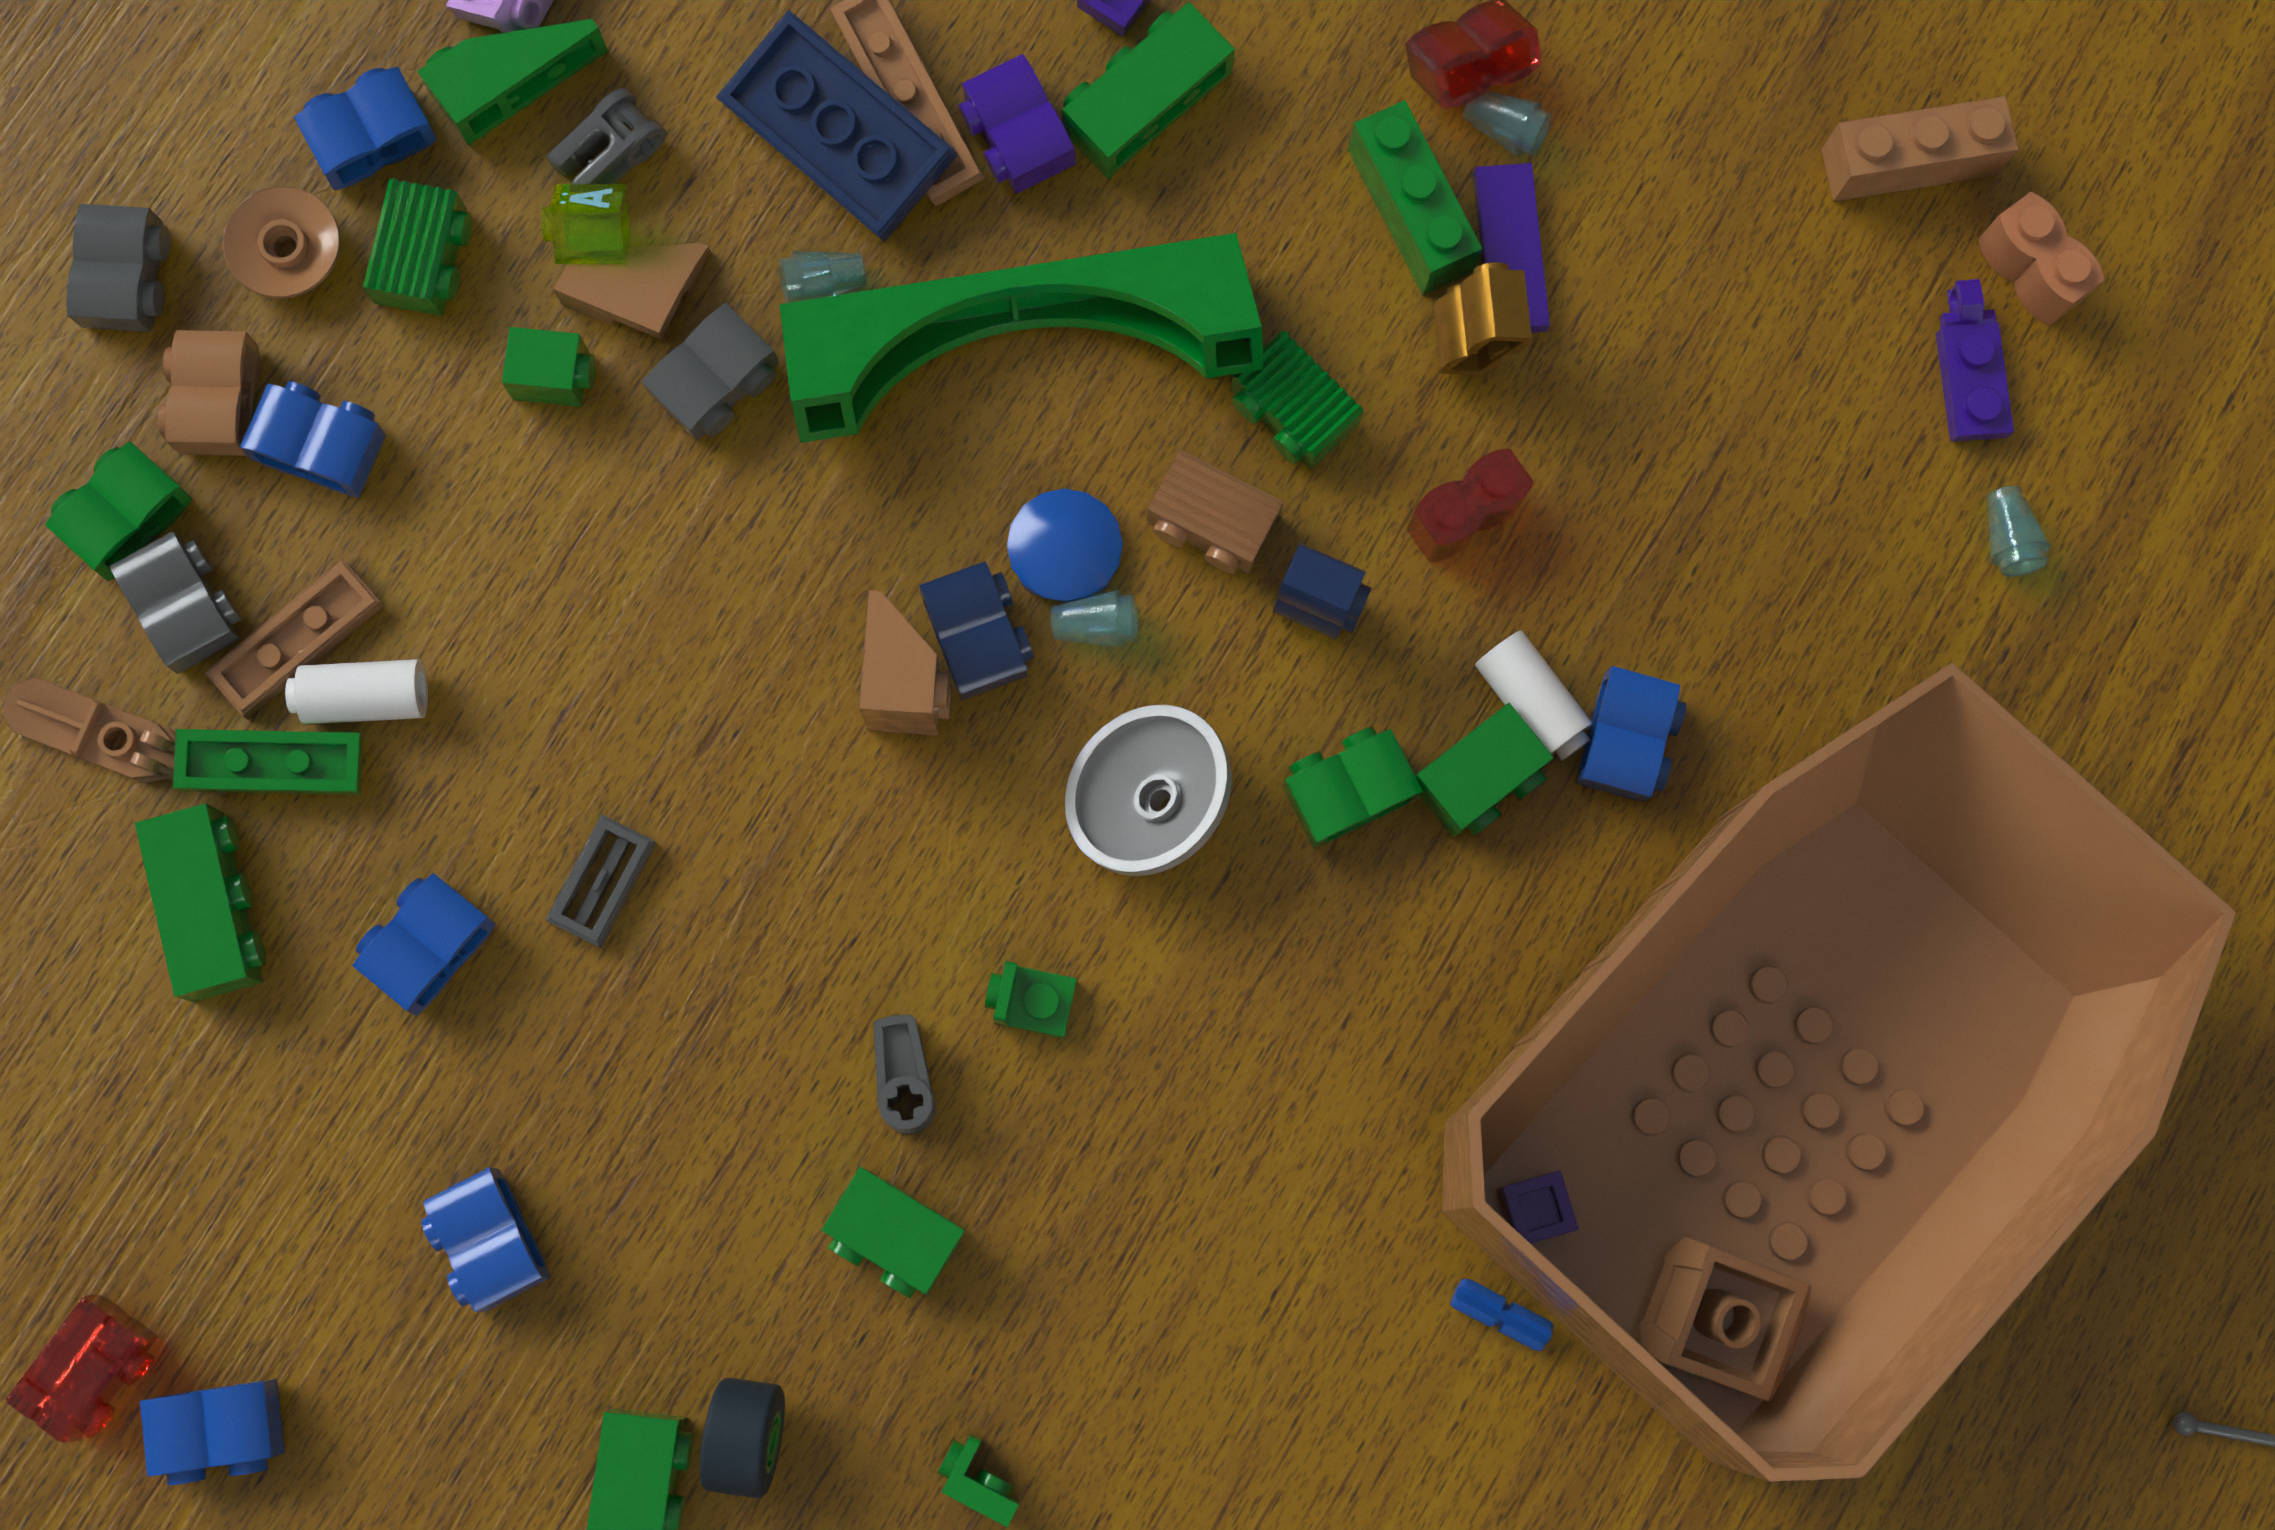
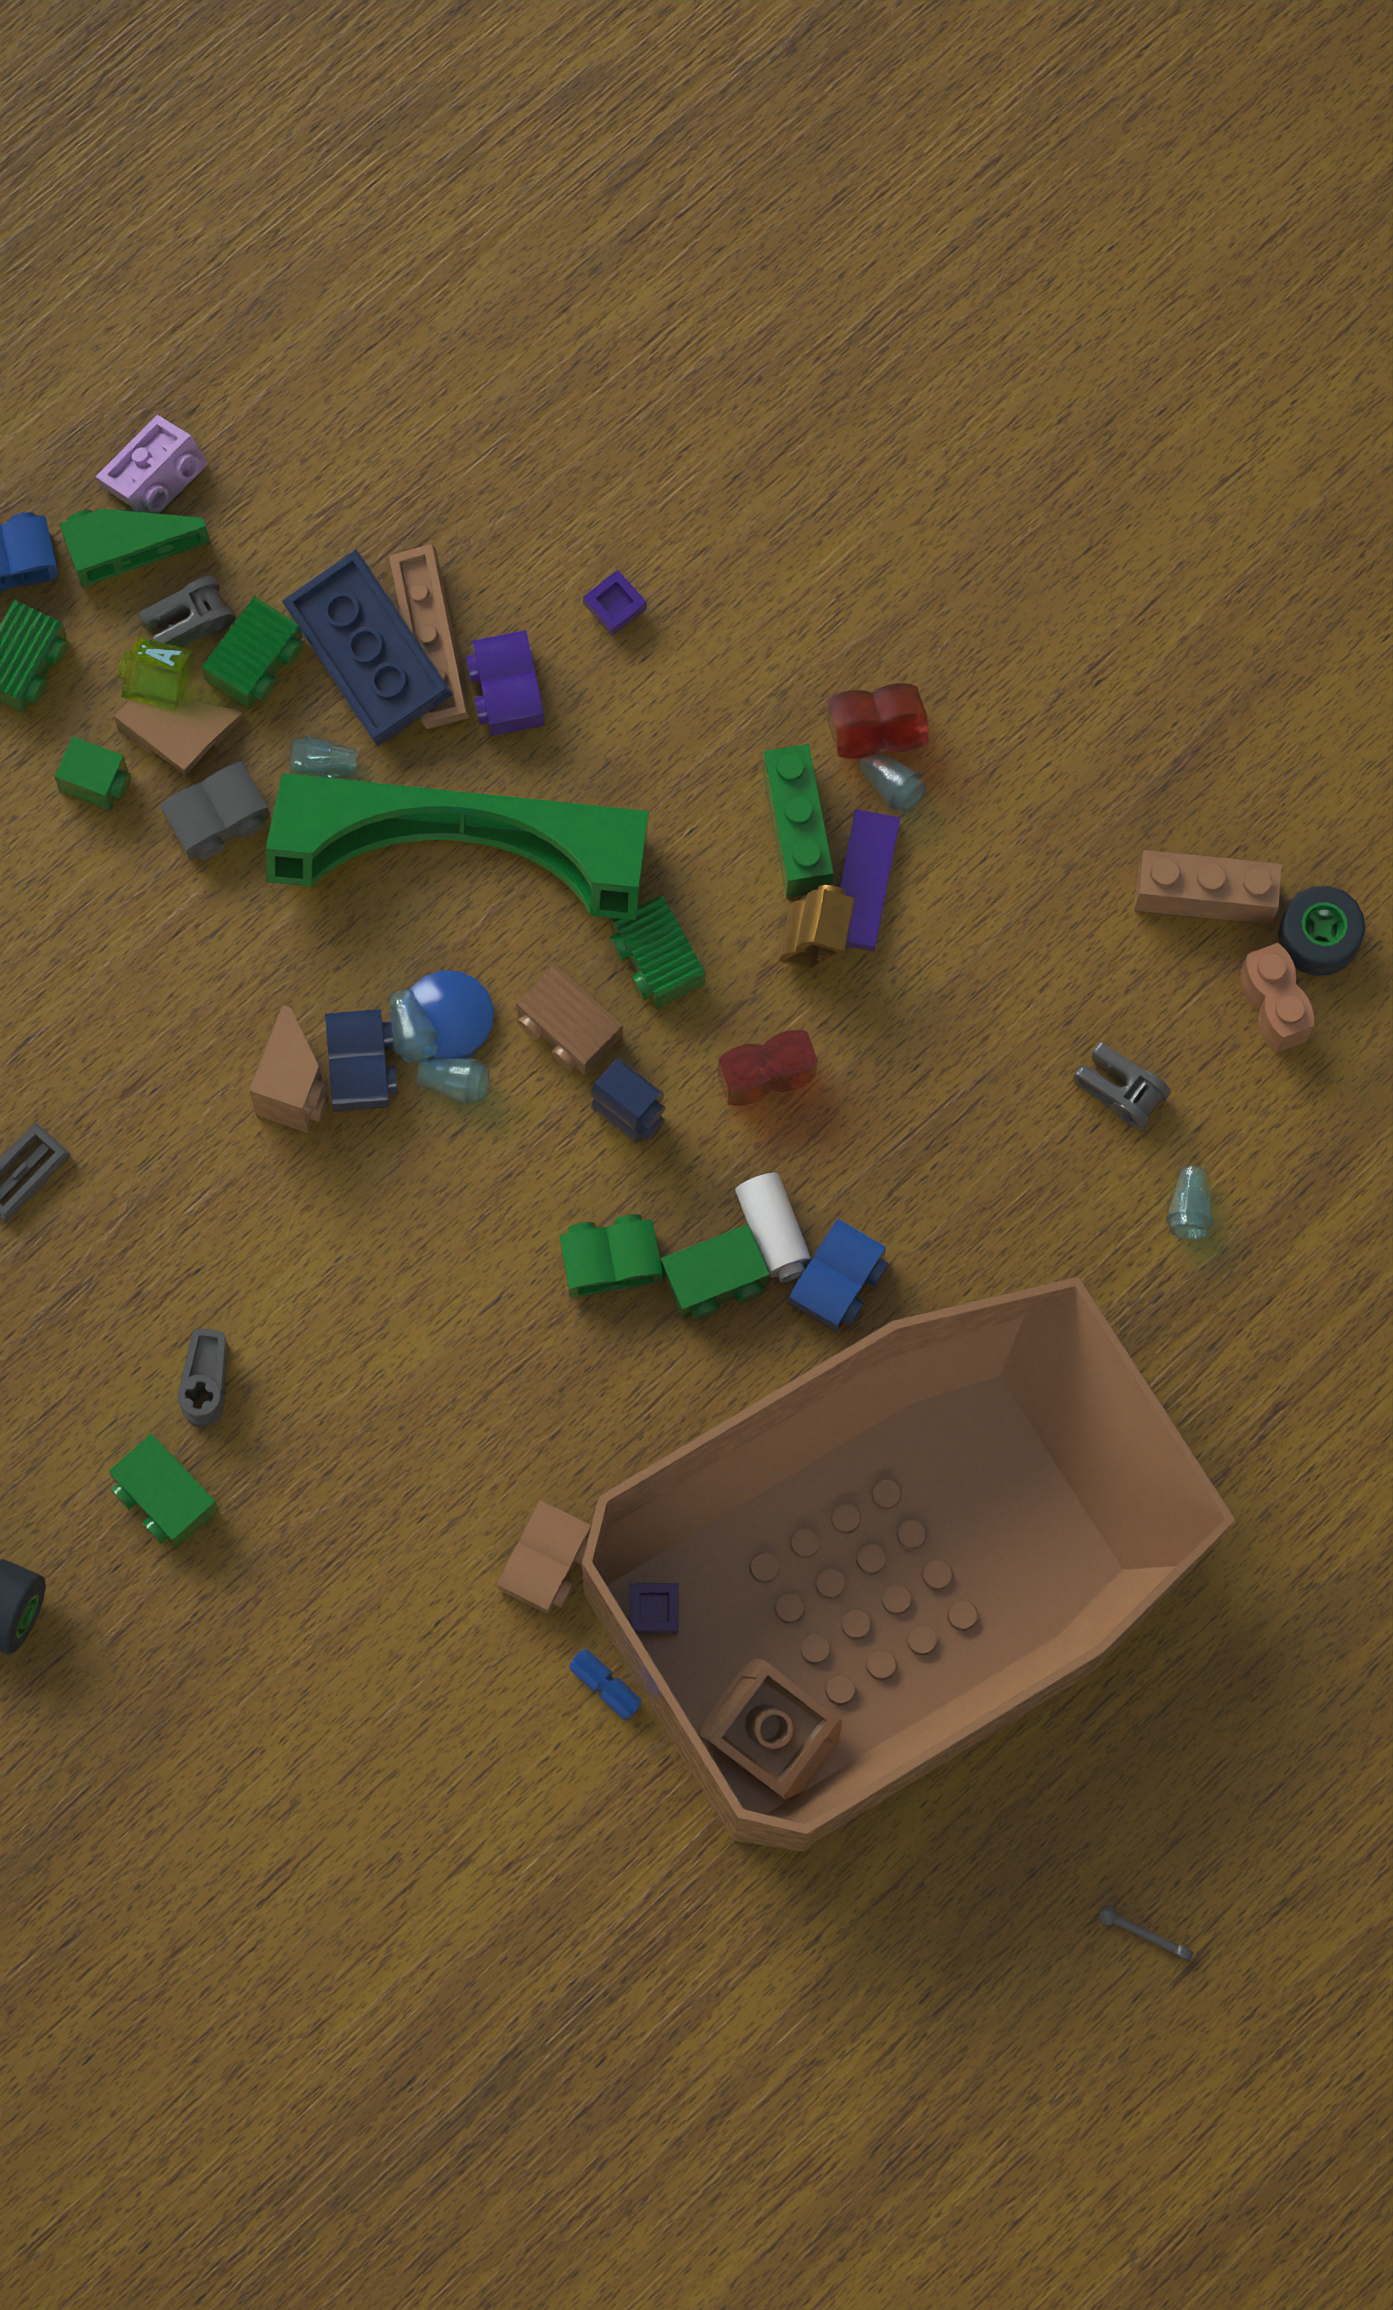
camera: 20 degrees right, 5 degrees down
(701, 168) = (253, 653): none -> green brick
(984, 1494) = (174, 1701): green bracket -> none
(1029, 573) = (411, 1028): none -> clear light blue cone
(1031, 999) = (318, 1349): green bracket -> none
(1129, 774) = (452, 1214): light grey dish -> none
(1147, 88) = (616, 681): green brick -> none
(1386, 1180) = (544, 1558): none -> medium nougat brick
(1901, 400) = (1135, 1099): none -> dark grey piece
(1973, 367) = (1201, 1069): dark purple hinge -> none
(2078, 147) = (1327, 915): none -> black wheel

